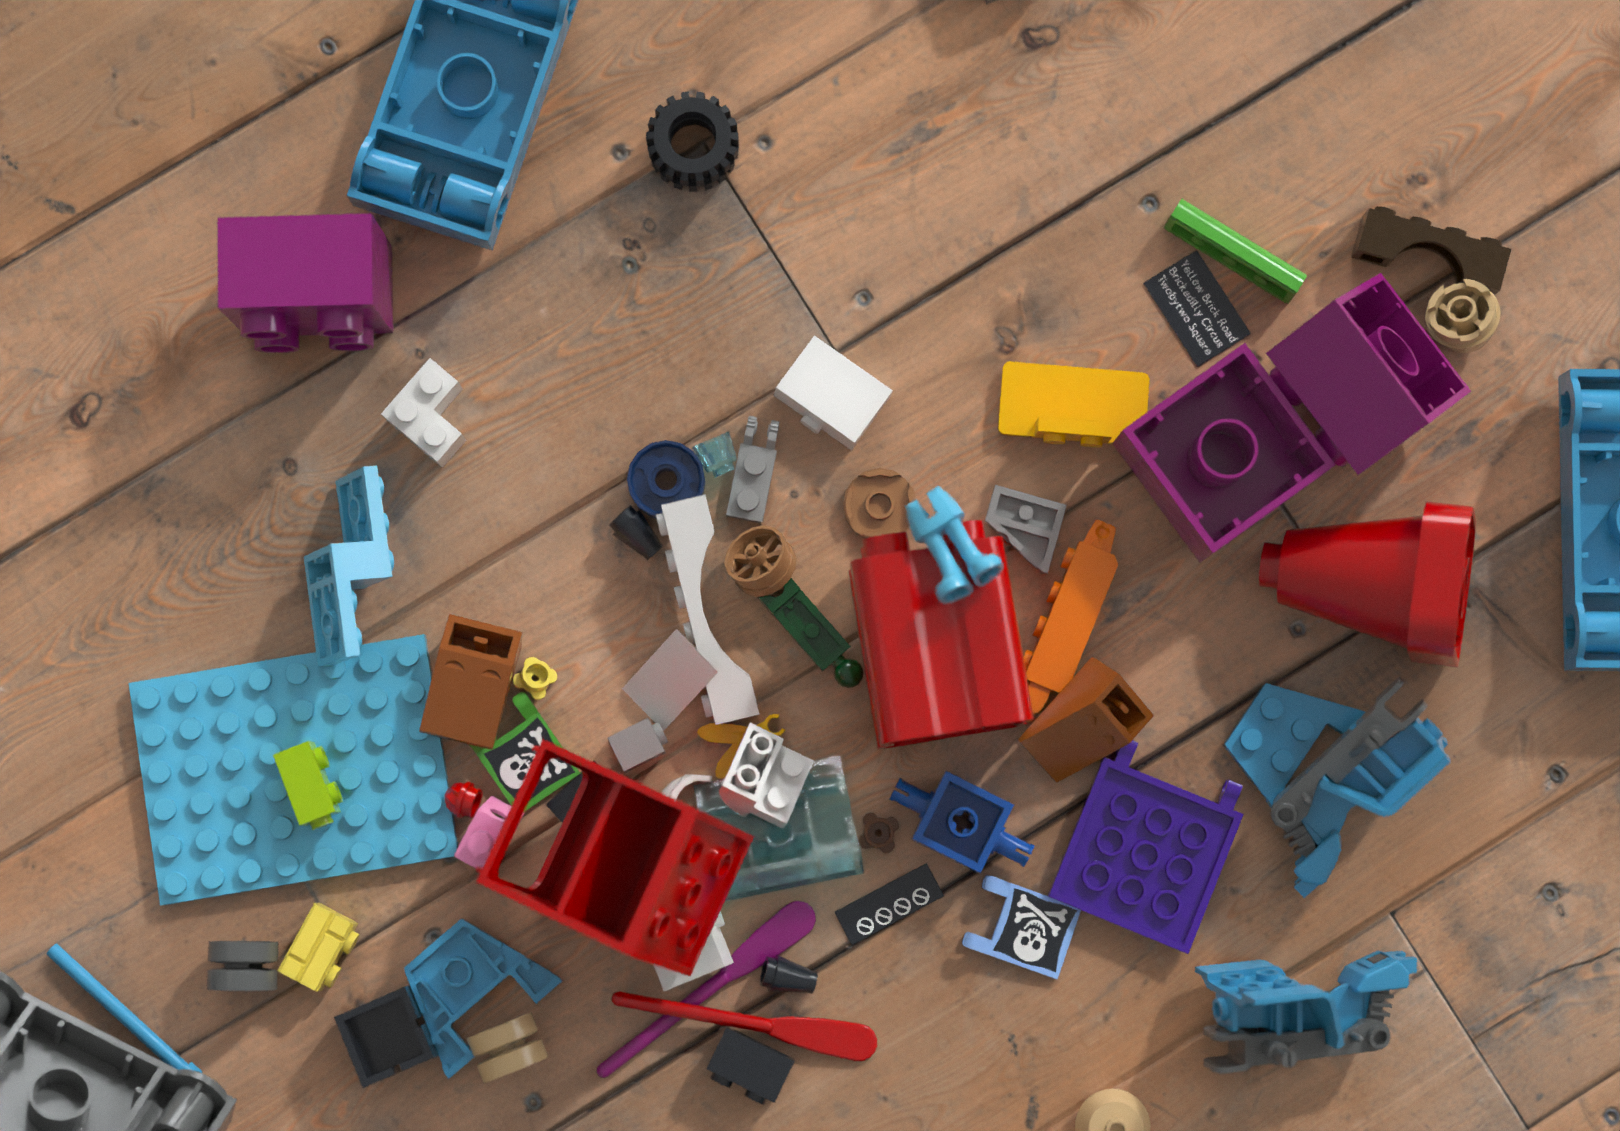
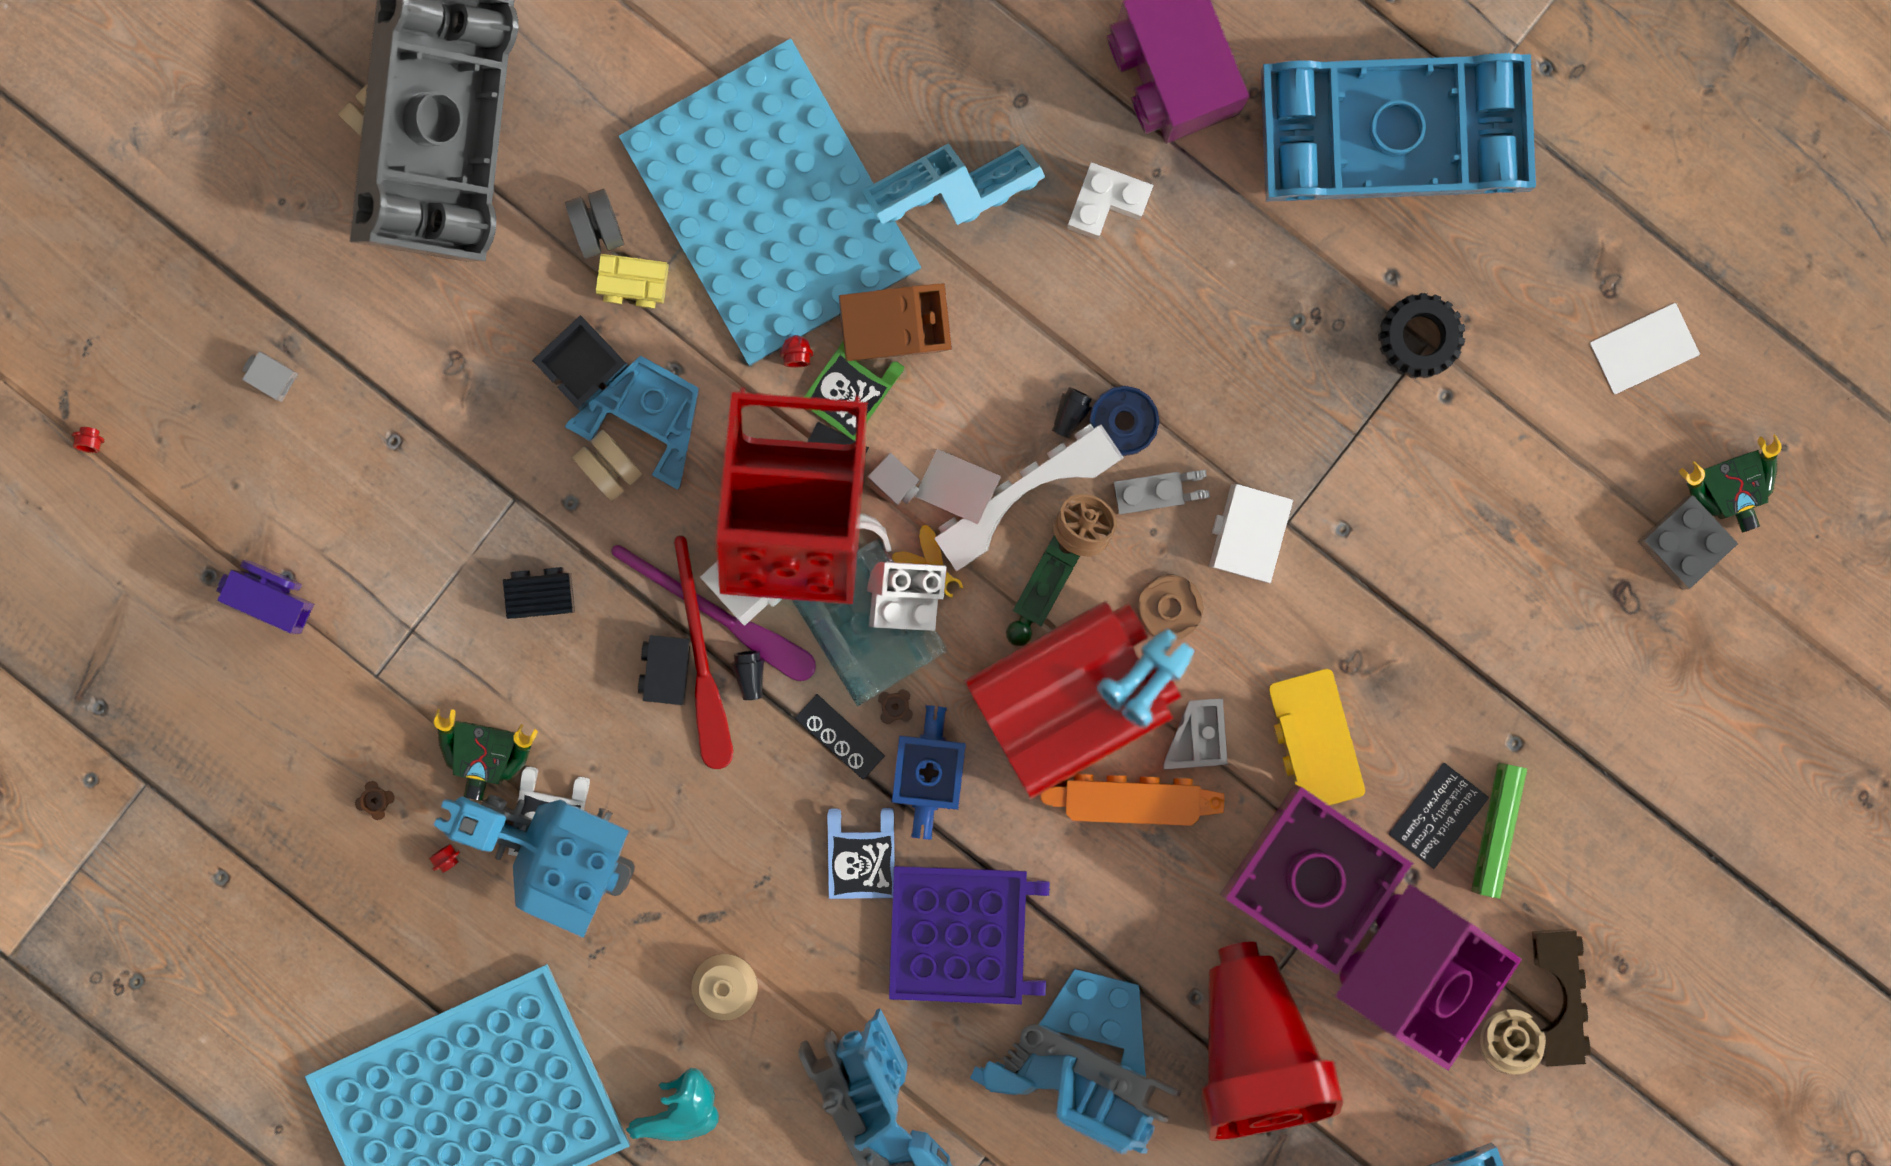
camera: 75 degrees right, 5 degrees up
(118, 1009) = (522, 133): dark azure bar -> none
(308, 785) = (761, 220): lime brick -> none
(482, 832) = (774, 380): bright pink torso -> none
(537, 668) = (927, 375): light yellow plate -> none
(717, 454) = (1162, 455): clear light blue hat -> none
(1085, 721) = (1049, 845): dark orange slope -> none

